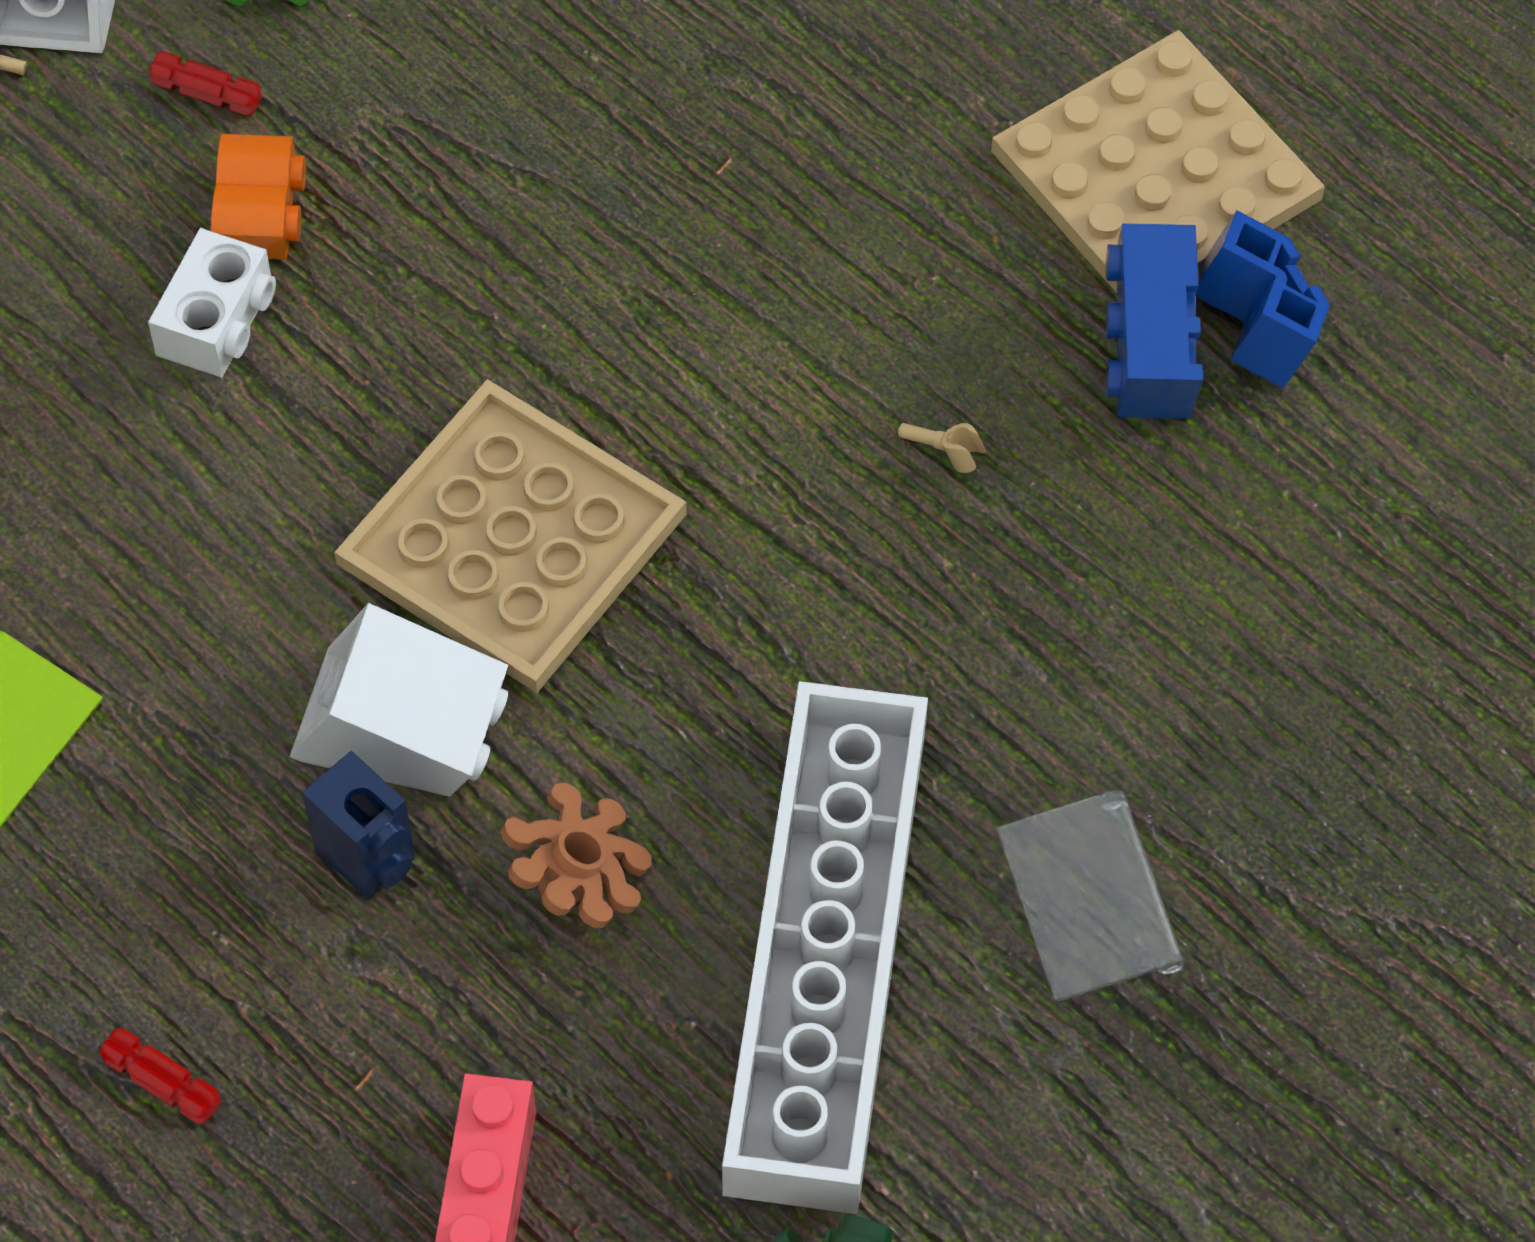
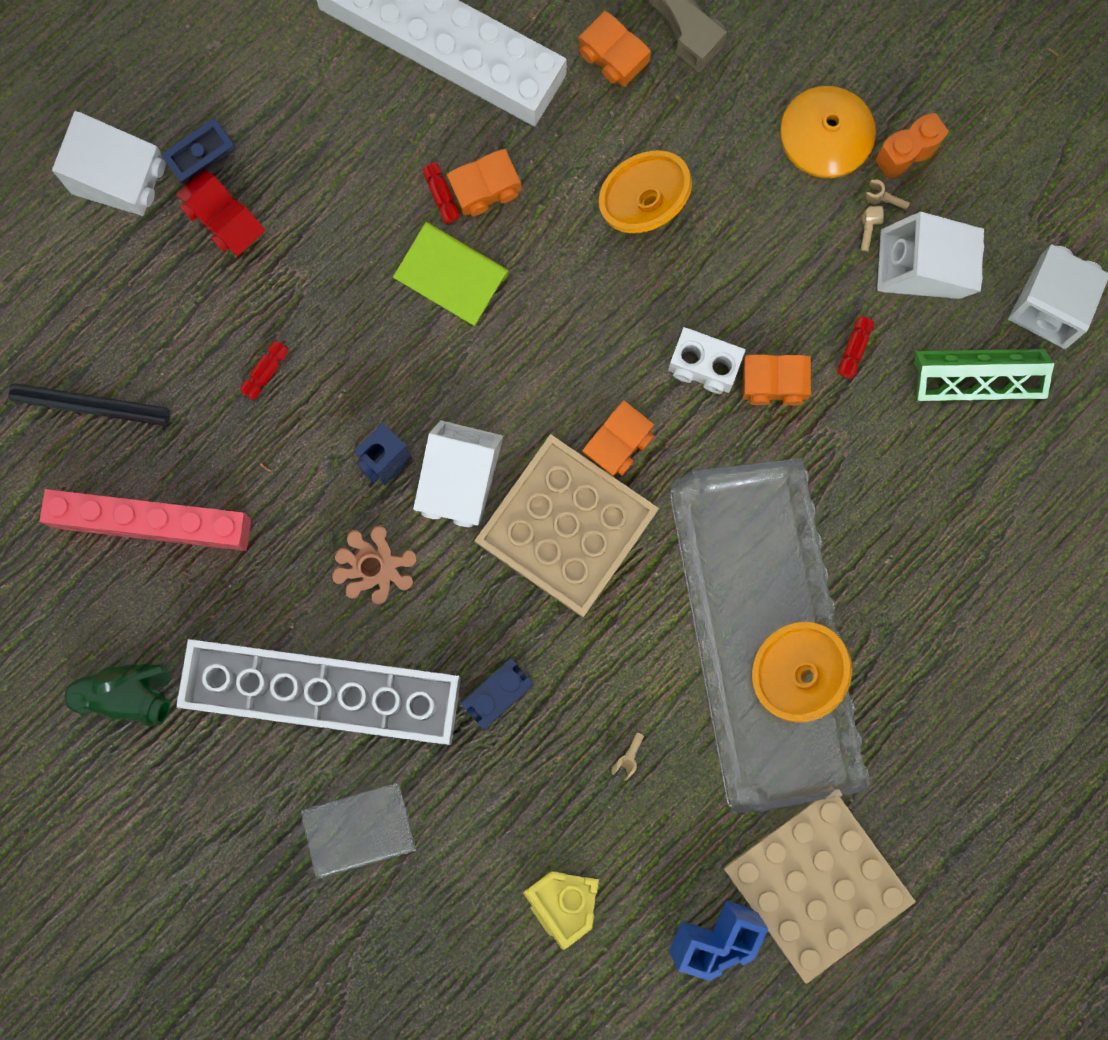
camera: 90 degrees right, 20 degrees up
(350, 441) = (619, 439): none -> orange brick
(725, 224) = (748, 572): none -> clear windscreen
(761, 134) = (786, 661): none -> light orange dish
(829, 636) = (497, 694): none -> dark blue brick
(1154, 321) = (697, 877): blue wedge -> none
(1216, 545) = (564, 905): none -> light yellow plate

